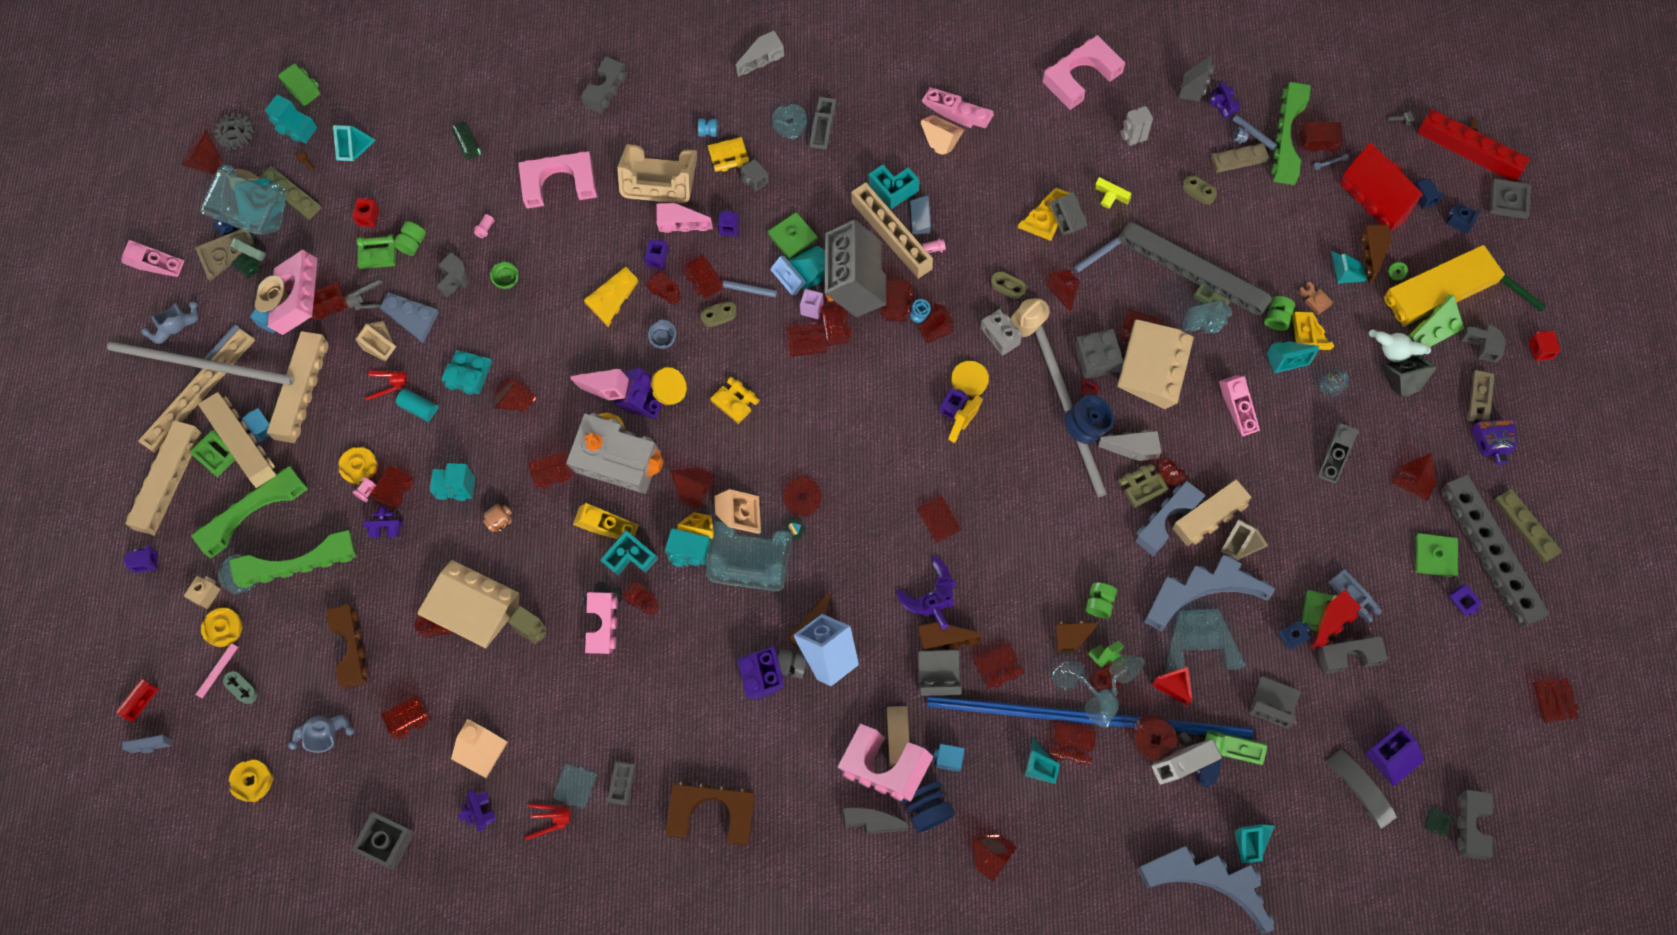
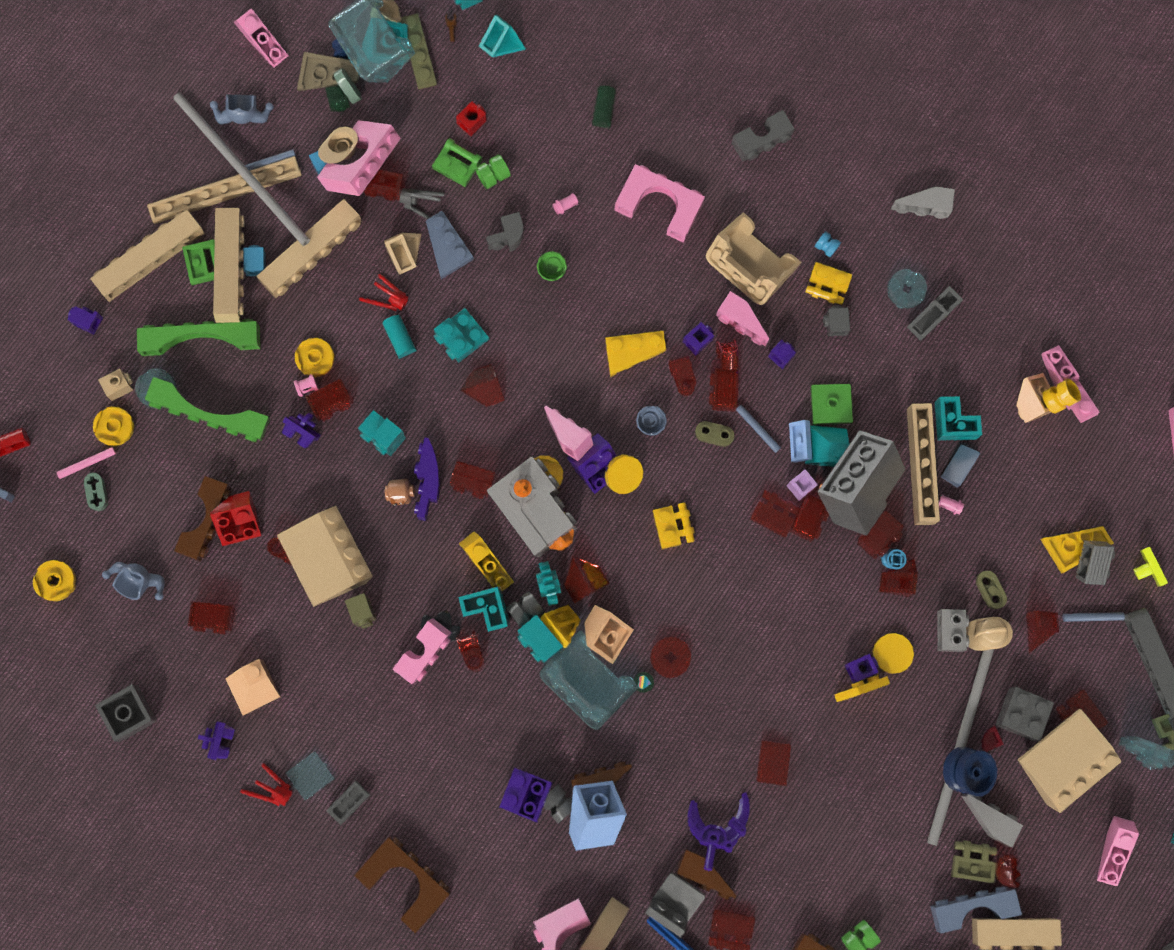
camera: 25 degrees right, 10 degrees up
(375, 628) = (236, 519): none -> red slope
(513, 491) = (427, 471): none -> dark purple slope
(660, 534) = (524, 609): none -> dark grey wheel
(665, 503) = (548, 583): none -> teal gear
(687, 249) = (728, 354): none -> clear red piece
(957, 115) = (1064, 394): none -> yellow wheel

